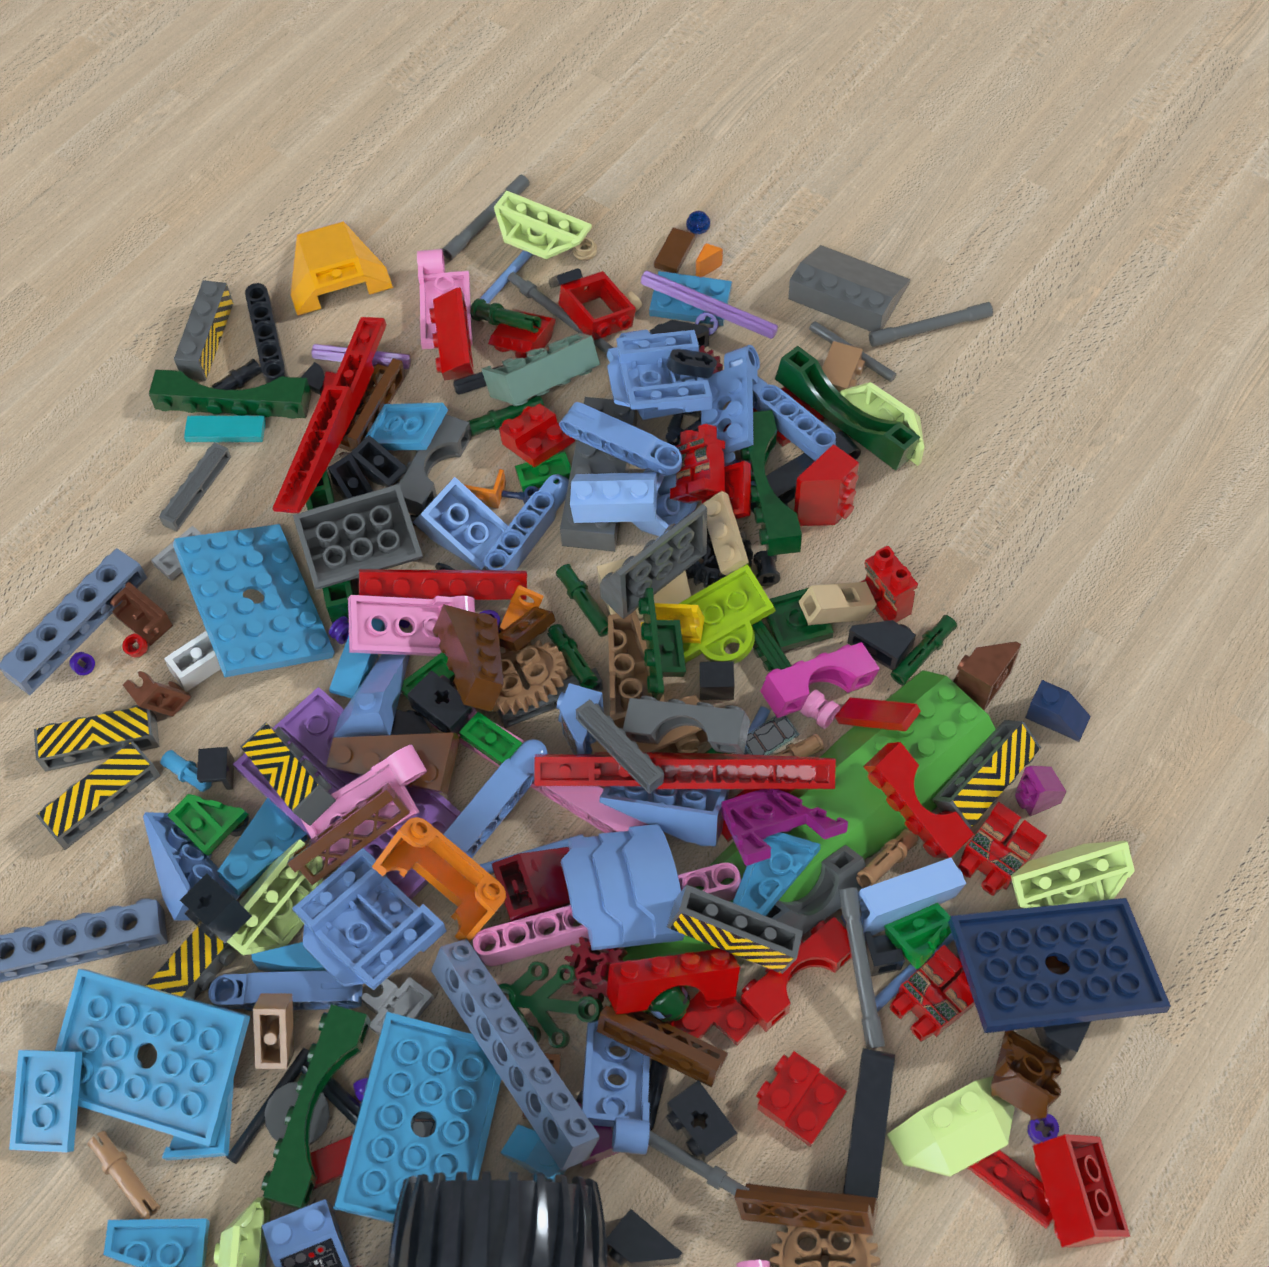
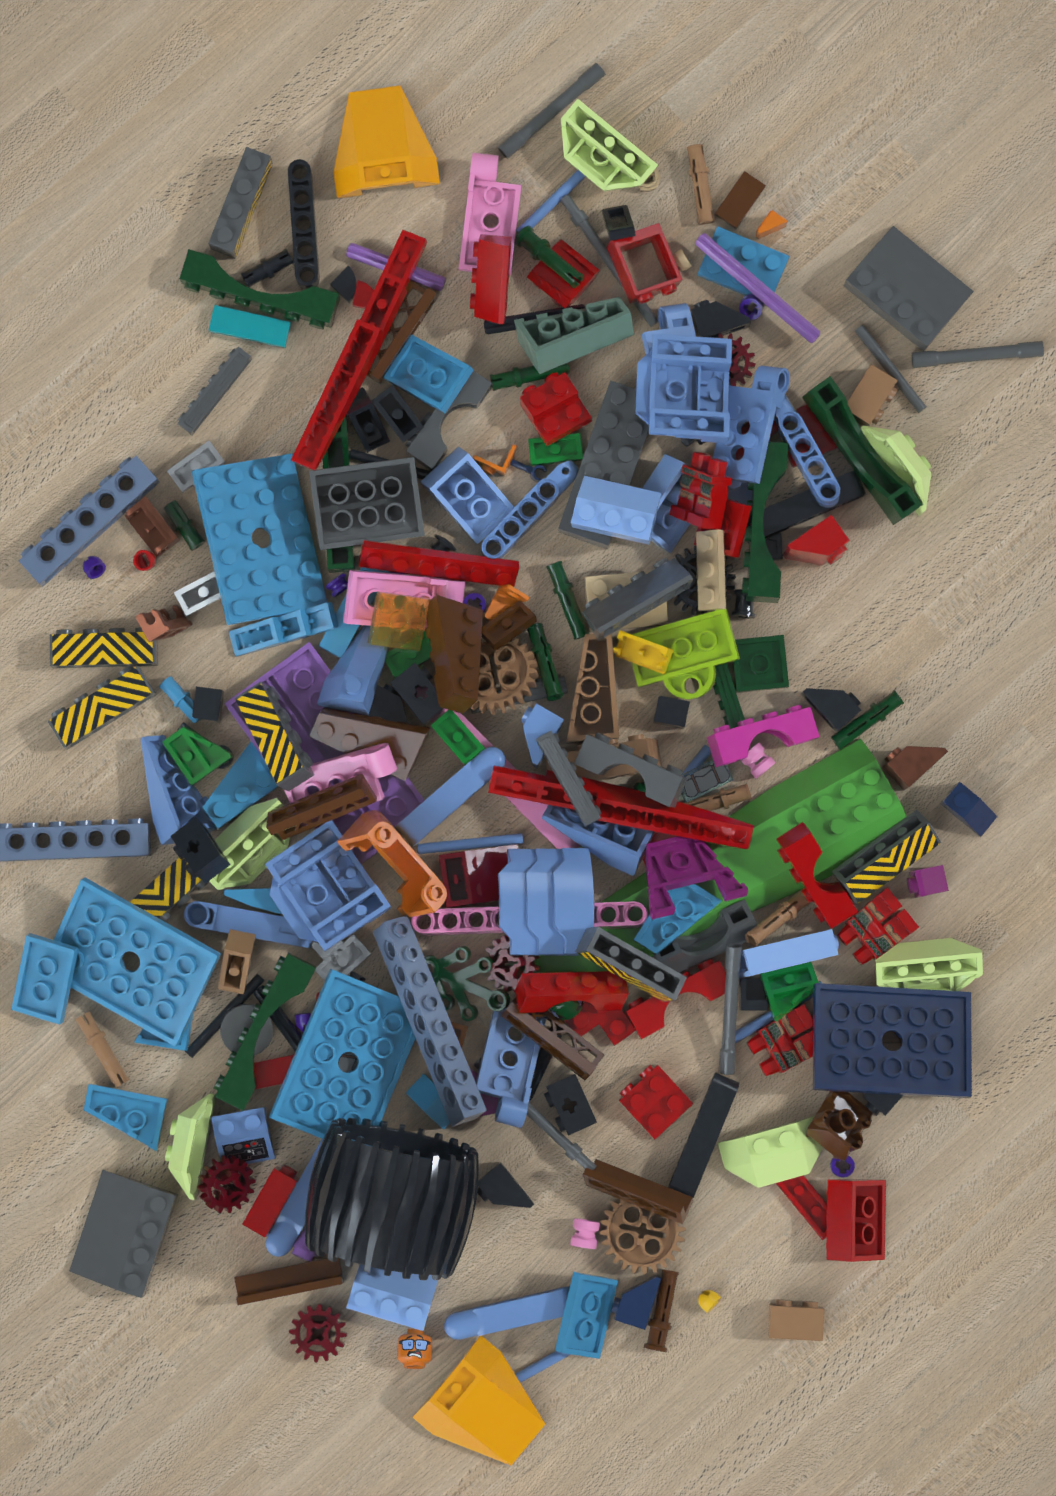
camera: 10 degrees right, 25 degrees up
(175, 608) = (184, 525): none -> dark green axle
(289, 682) = (283, 629): none -> dark azure slope
(408, 639) = (398, 621): none -> clear yellow plate
(620, 439) = (634, 450): medium blue piece -> none
(631, 236) = (699, 172): none -> medium nougat pin
(663, 644) = (628, 681): dark green bracket -> none
(691, 363) = (720, 383): black beam -> none
(698, 222) = (772, 169): clear blue plate -> none
(837, 603) = (799, 661): tan brick -> none
(878, 714) = (804, 783): red tile -> none
(890, 585) = (853, 655): red hips -> none

